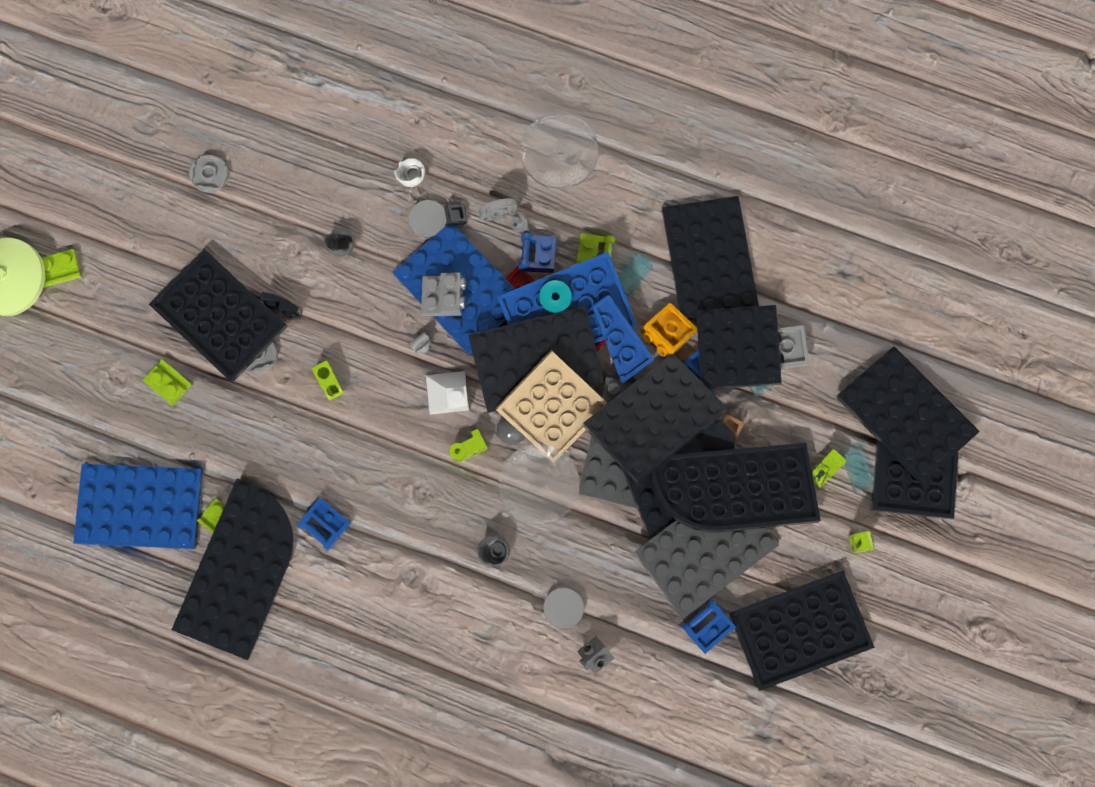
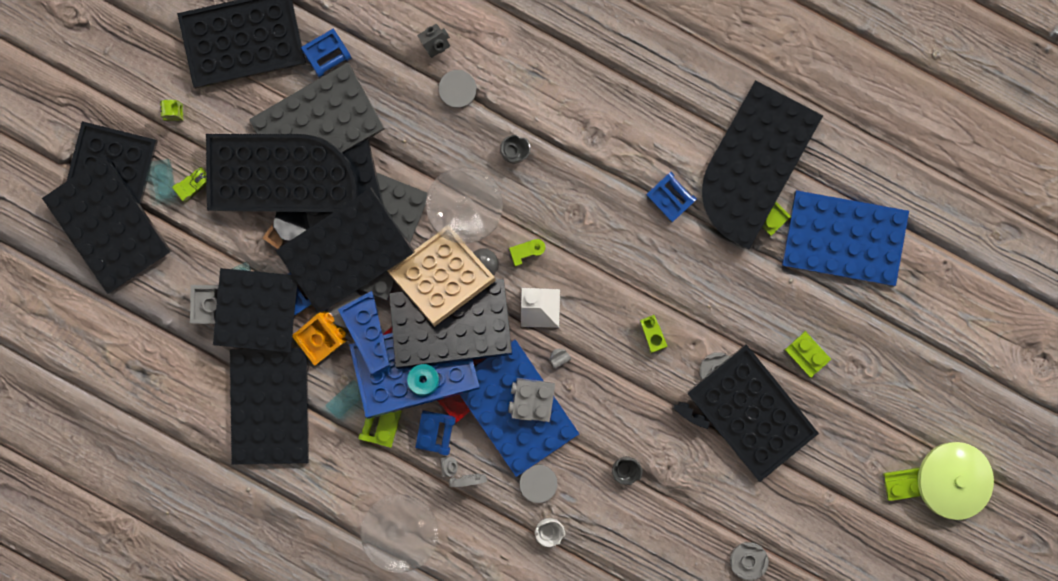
camera: 175 degrees left, 10 degrees up
(455, 214) = (510, 484): black tile -> none

